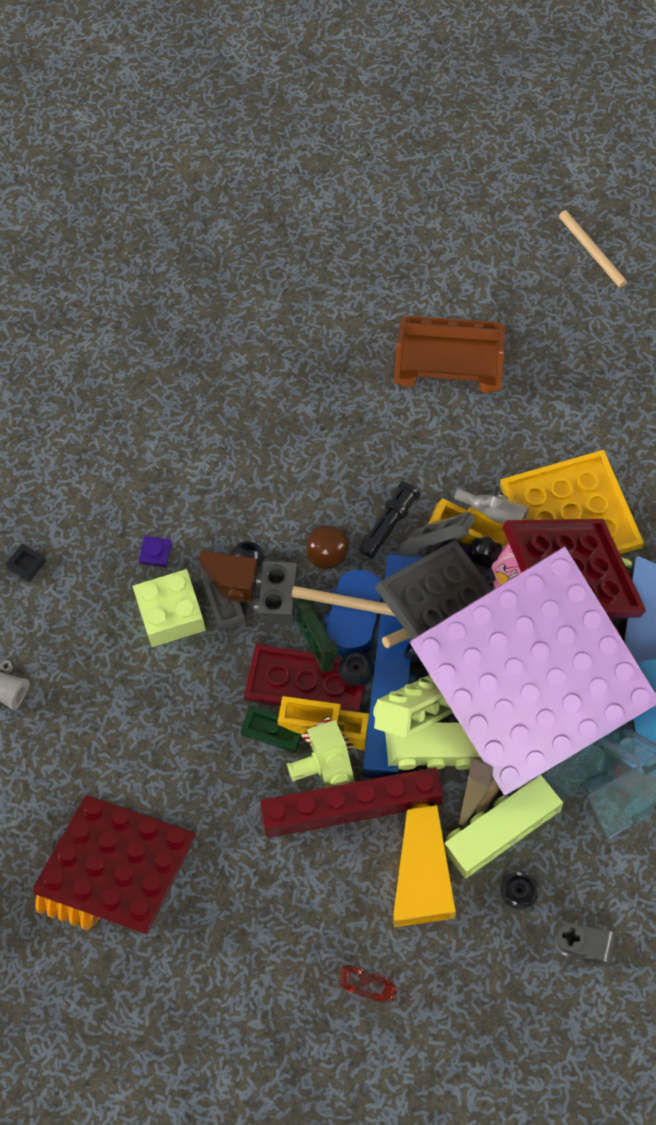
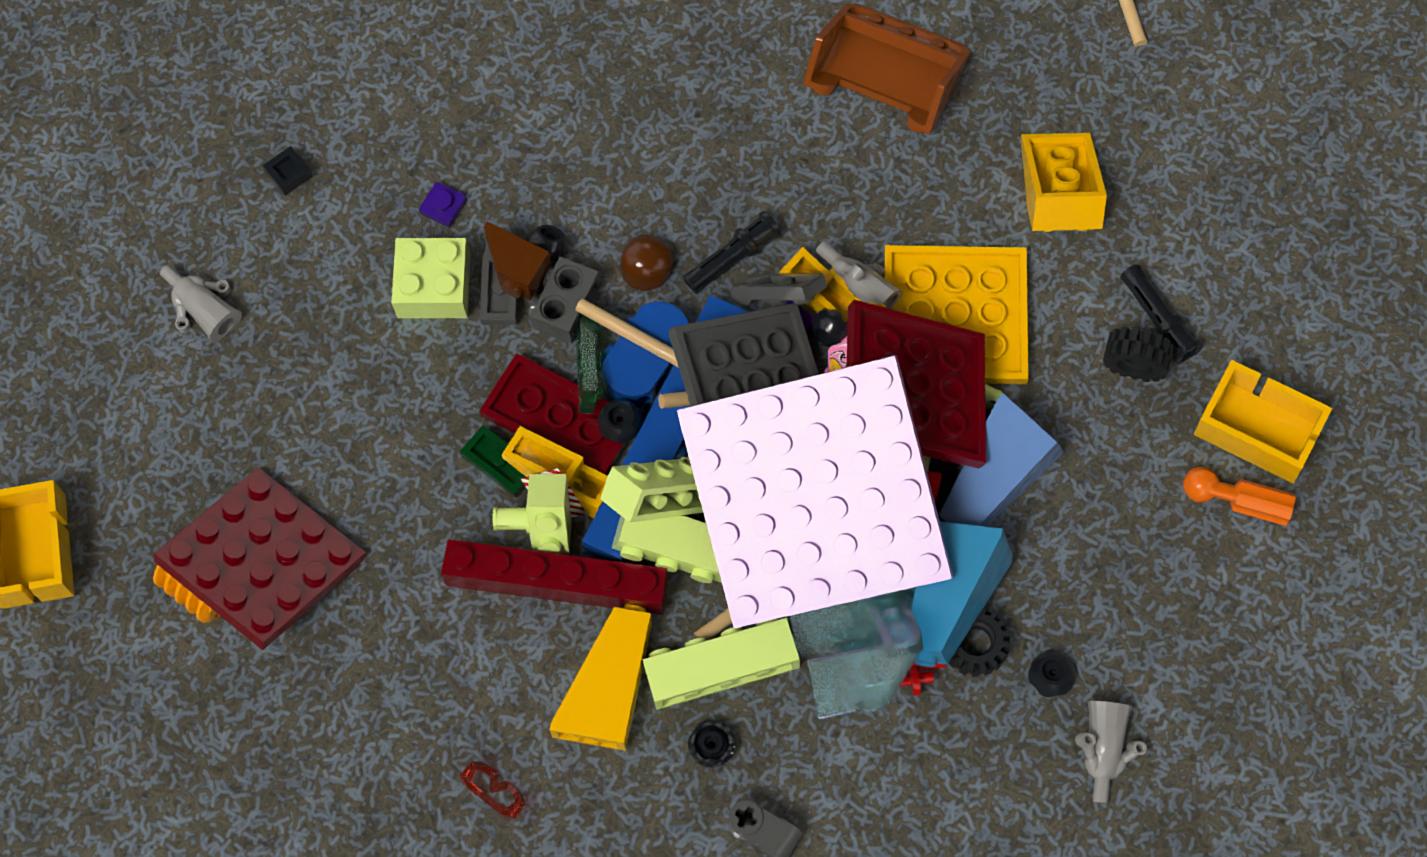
camera: 20 degrees right, 5 degrees up
(477, 786) = (699, 606): dark tan slope -> none
(610, 396) = (1062, 182): none -> yellow slope

